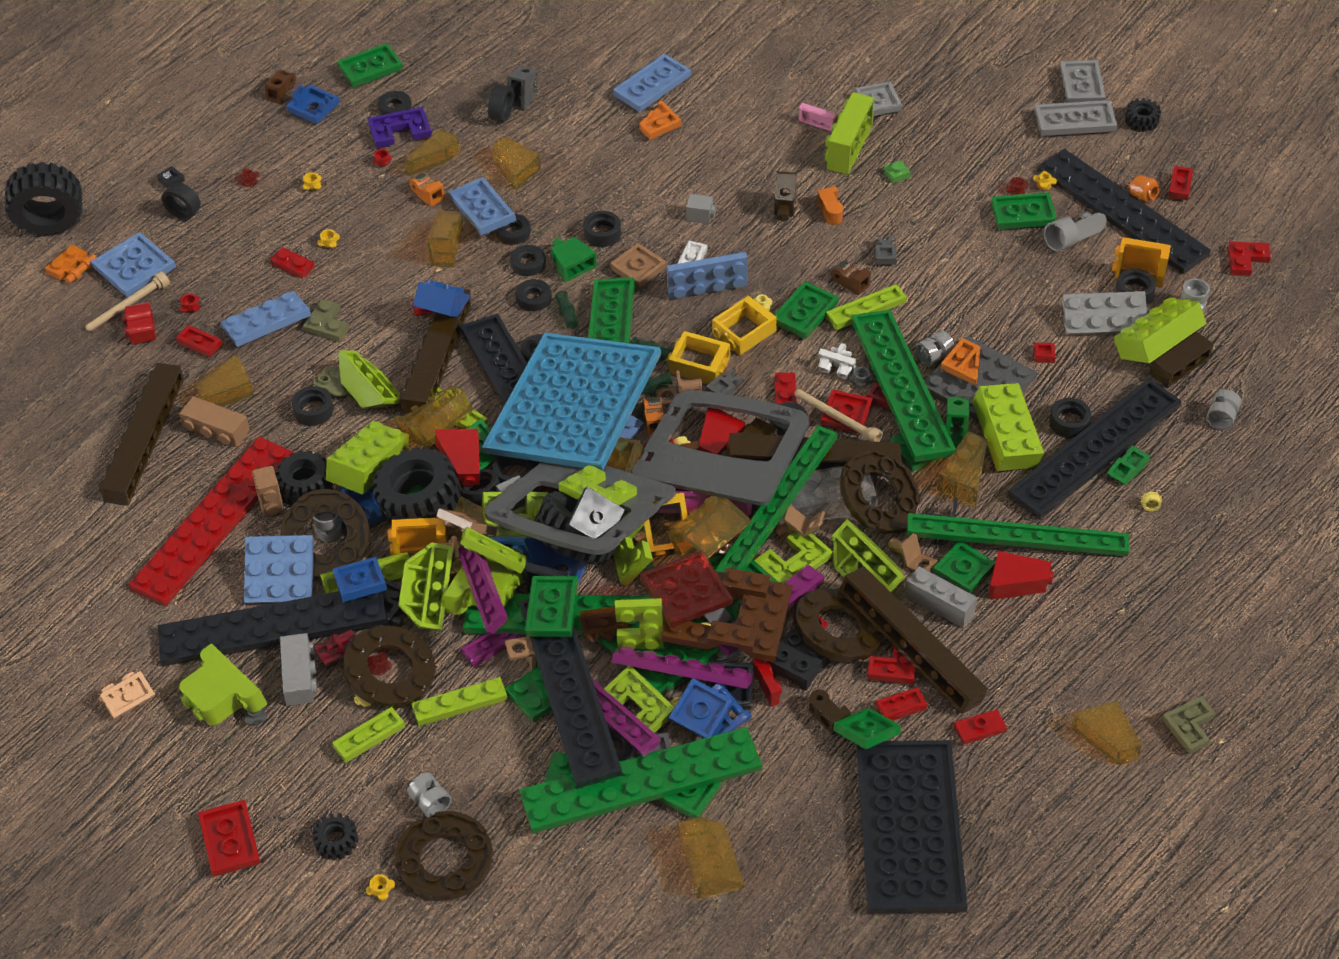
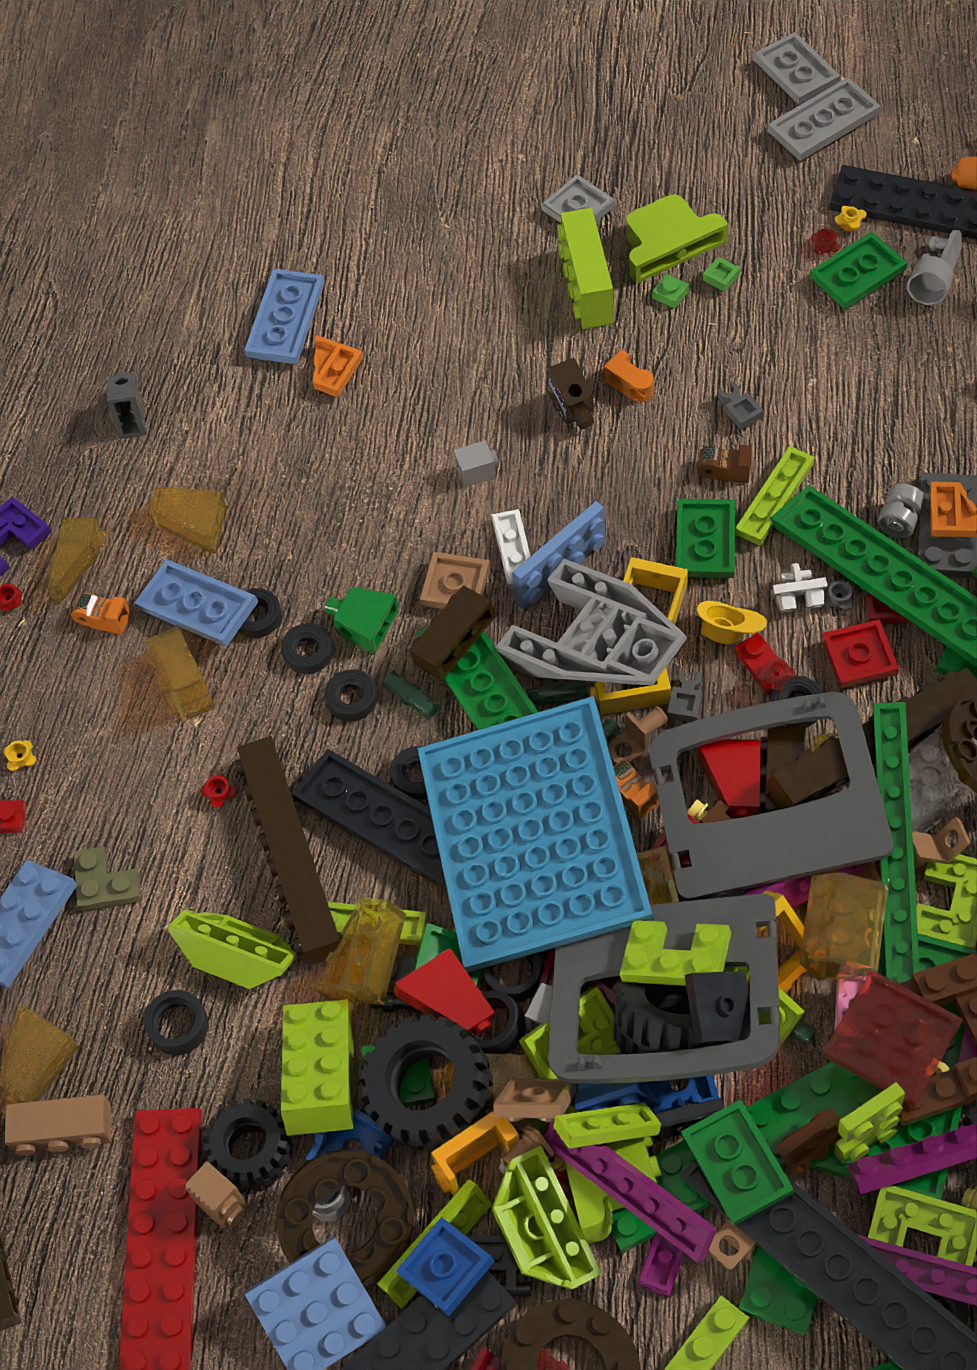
camera: 25 degrees left, 10 degrees up
(331, 381) = (174, 963): olive plate -> none
(440, 298) = (250, 773): blue slope -> none
(500, 103) = (116, 441): black tyre -> none
(602, 218) = (367, 536): black tyre -> none
(611, 285) = (452, 632): none -> dark brown brick
(690, 325) = (610, 641): none -> light grey wedge
(764, 301) = (643, 548): light yellow plate -> none
(778, 356) = (728, 623): none -> yellow piece
(784, 390) = (777, 665): none -> clear red plate
(817, 117) = (525, 264): bright pink plate -> none
(871, 434) = (918, 672): tan piece -> none
(919, 139) = (669, 235): none -> lime brick
(935, 175) = (721, 274): none -> bright green plate
(1142, 122) = (896, 88): black tyre -> none

